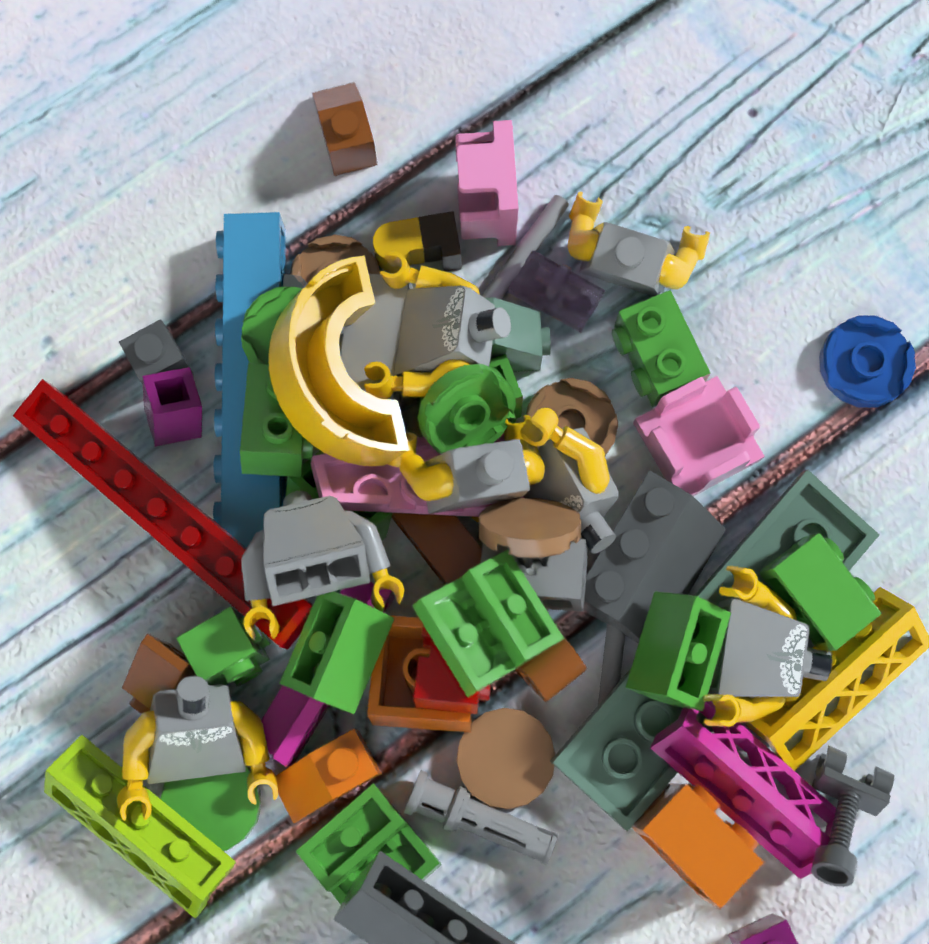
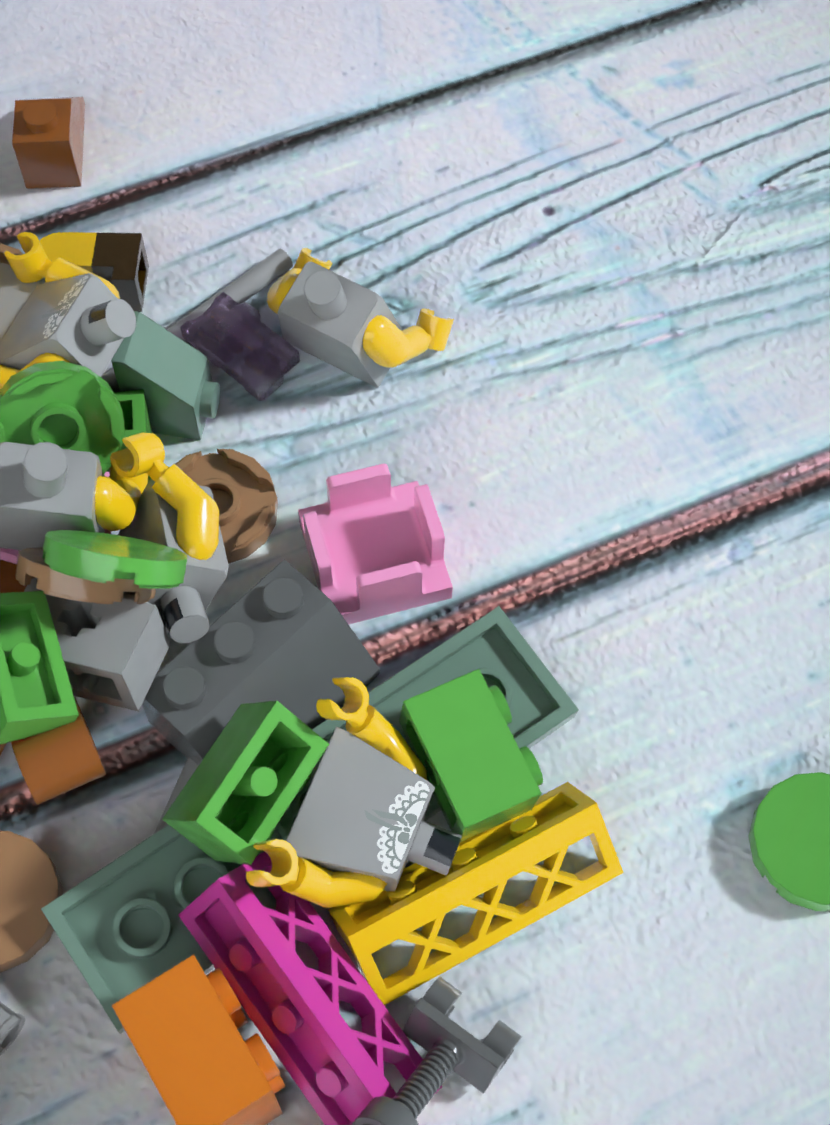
camera: 10 degrees right, 15 degrees down
(488, 184) = (201, 238): bright pink panel -> none
(558, 518) = (111, 556): none -> bright green tile
(658, 347) = (349, 423): bright green brick -> none
(867, 361) = (619, 505): blue tile -> none

